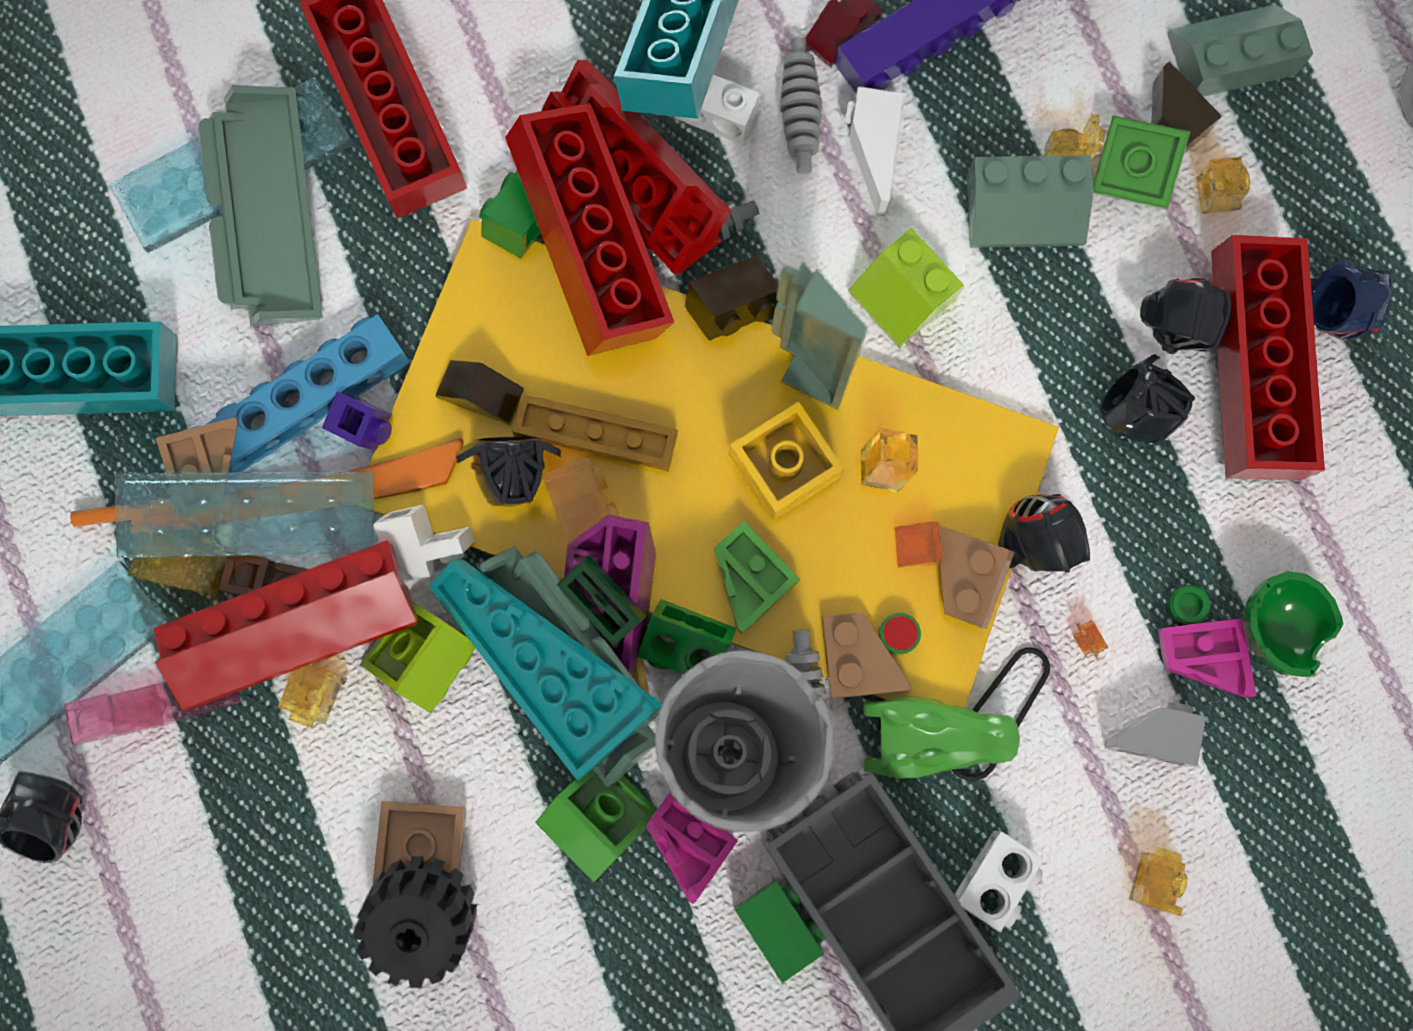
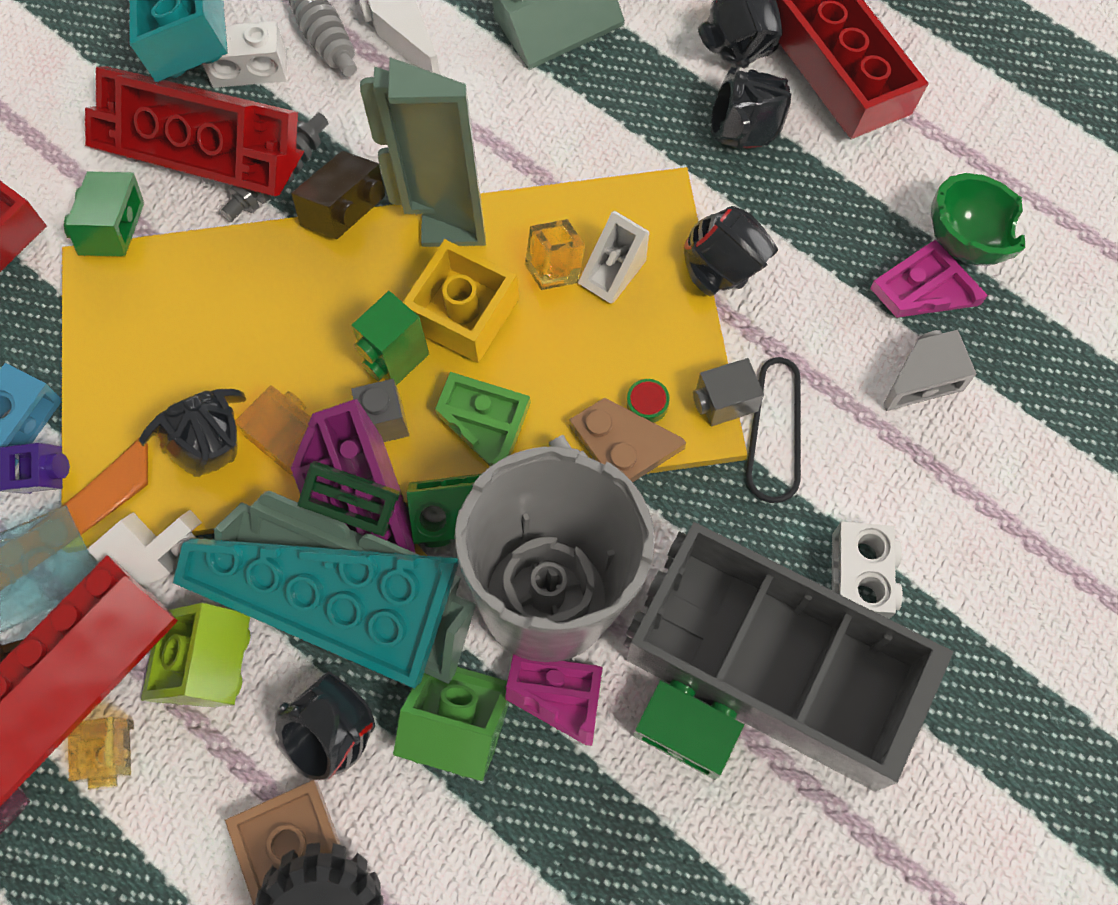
camera: 25 degrees left, 10 degrees down
(480, 390) = (139, 383): dark brown slope -> none
(492, 772) = (324, 728): none -> black piece
(588, 228) = (173, 191): red brick -> none
(595, 432) = (274, 364): pearl gold plate -> none
(669, 525) = (384, 408): none -> dark grey brick
(705, 468) = (390, 339): none -> green brick
(906, 288) = (501, 116): lime slope -> none
(918, 544) = (622, 316): clear orange slope -> none
(931, 737) = (732, 474): bright green animal -> none
(940, 489) = (615, 257): none -> white slope
(971, 576) = (683, 316): medium nougat wing -> none
(971, 665) = (728, 392): none -> dark grey brick
(1090, 639) = (818, 323): clear orange plate -> none
(1160, 881) = (1006, 495): clear yellow brick -> none
(1188, 605) = (882, 255): green tile -> none

